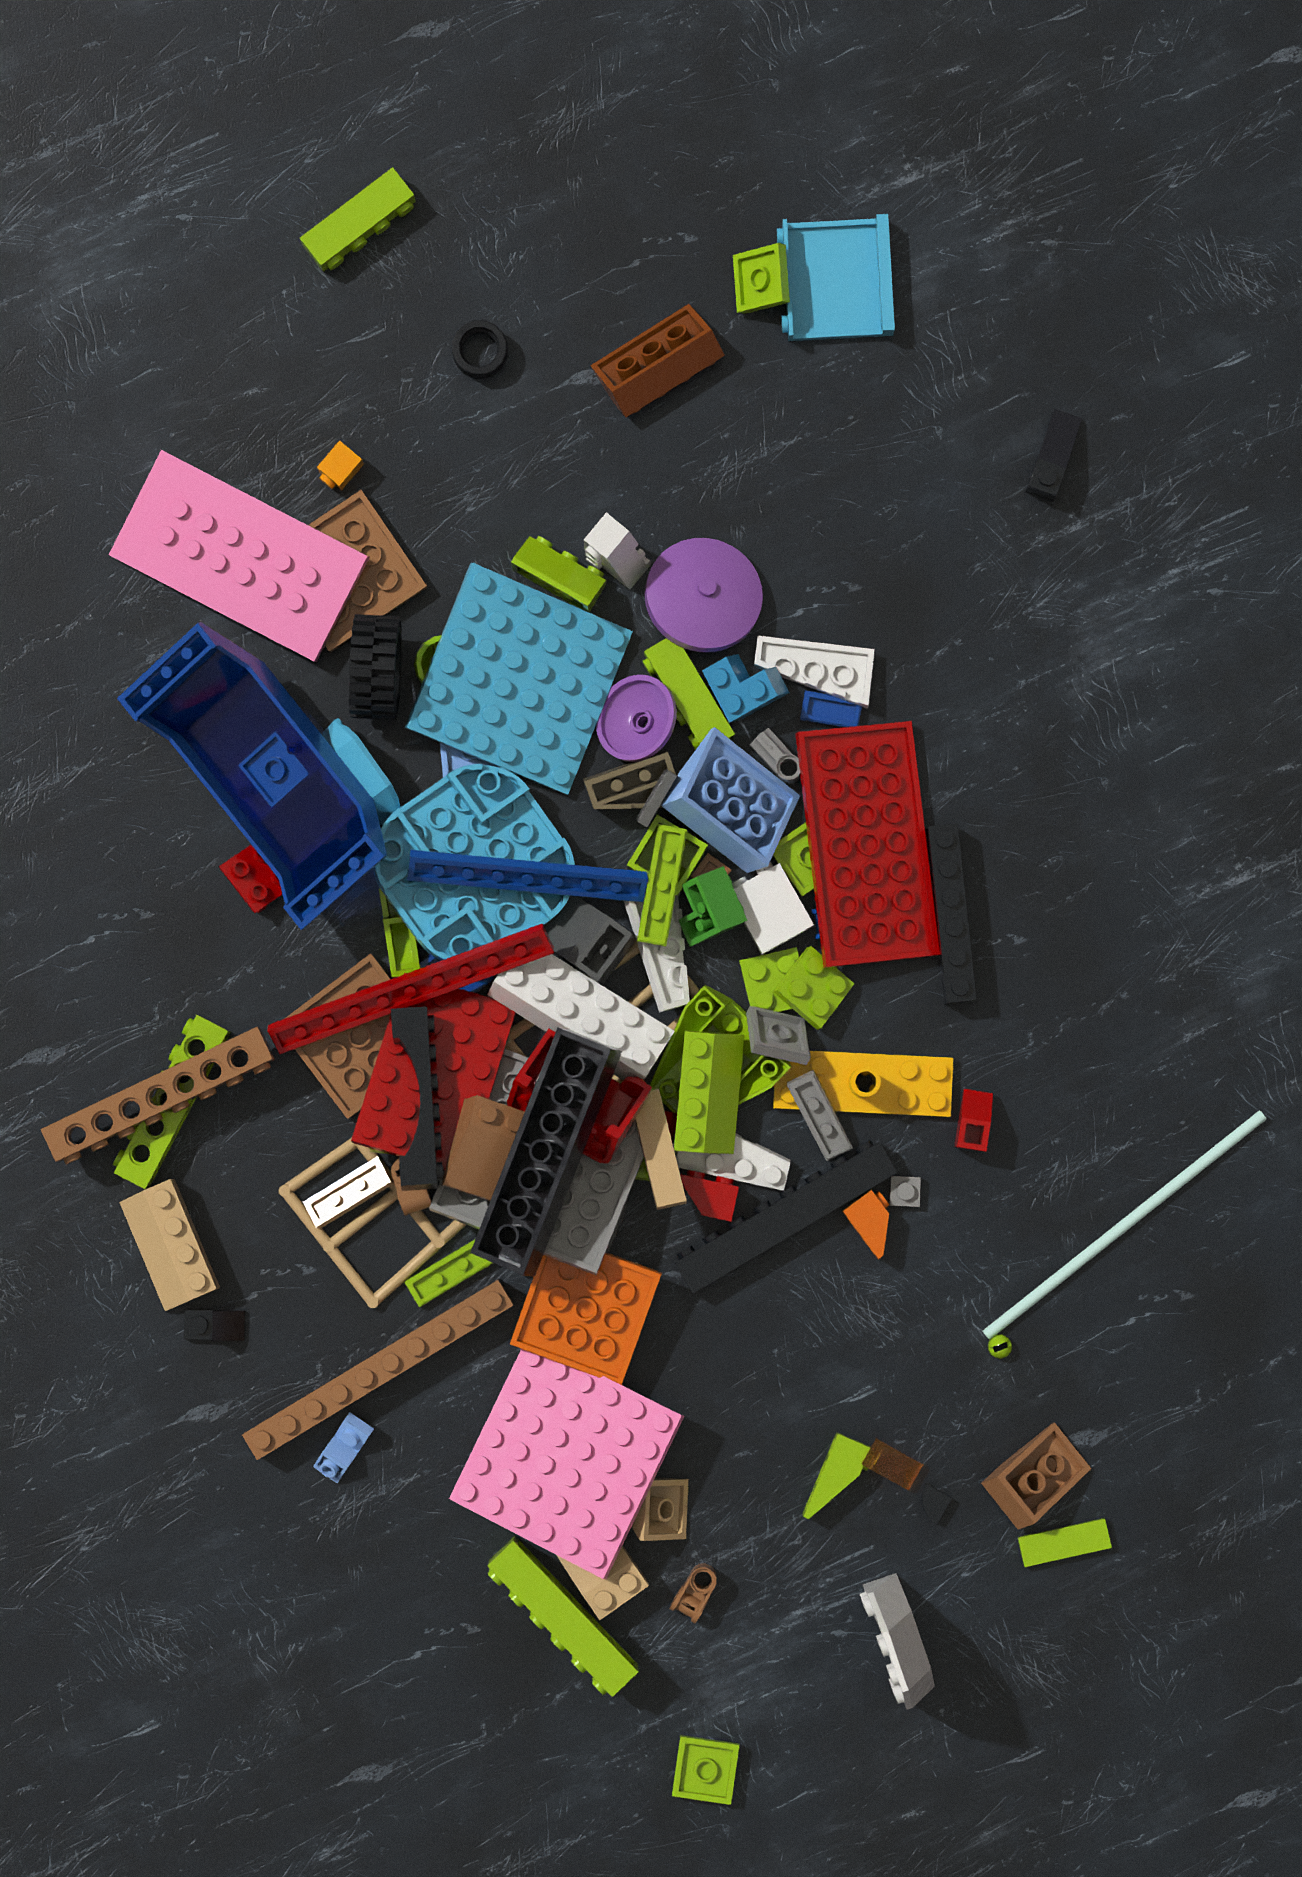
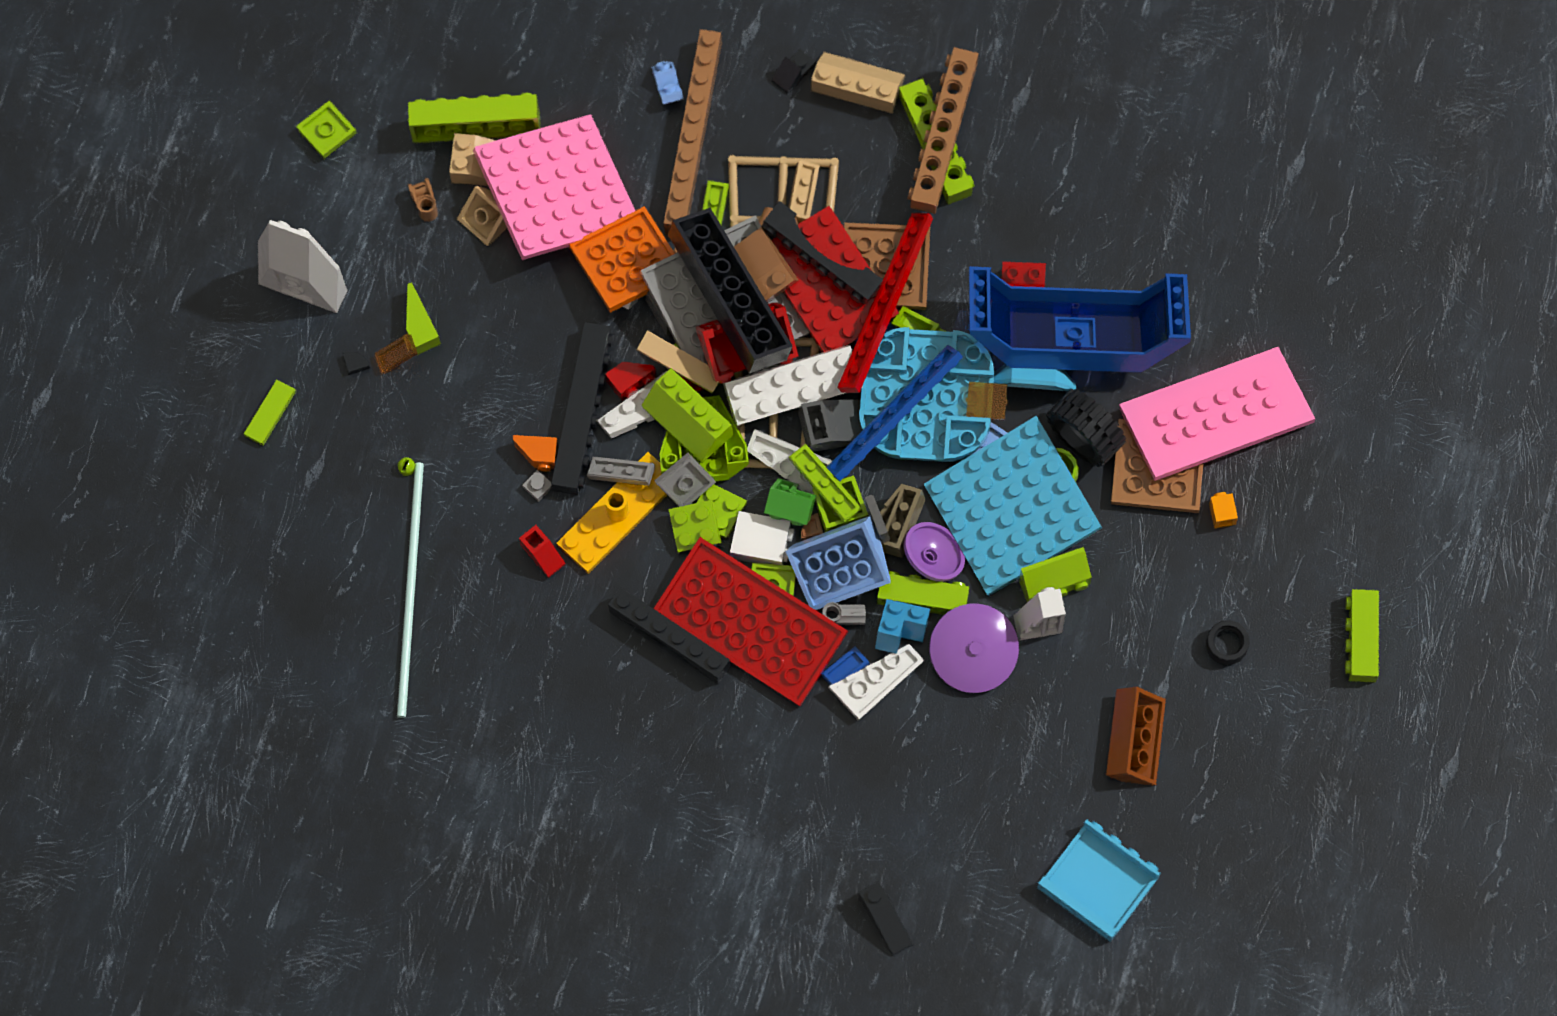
camera: 135 degrees right, 15 degrees down
(430, 795) = (986, 400): none -> clear orange piece
(761, 278) = (1134, 833): lime plate -> none
(1036, 1477) = (318, 425): medium nougat slope -> none

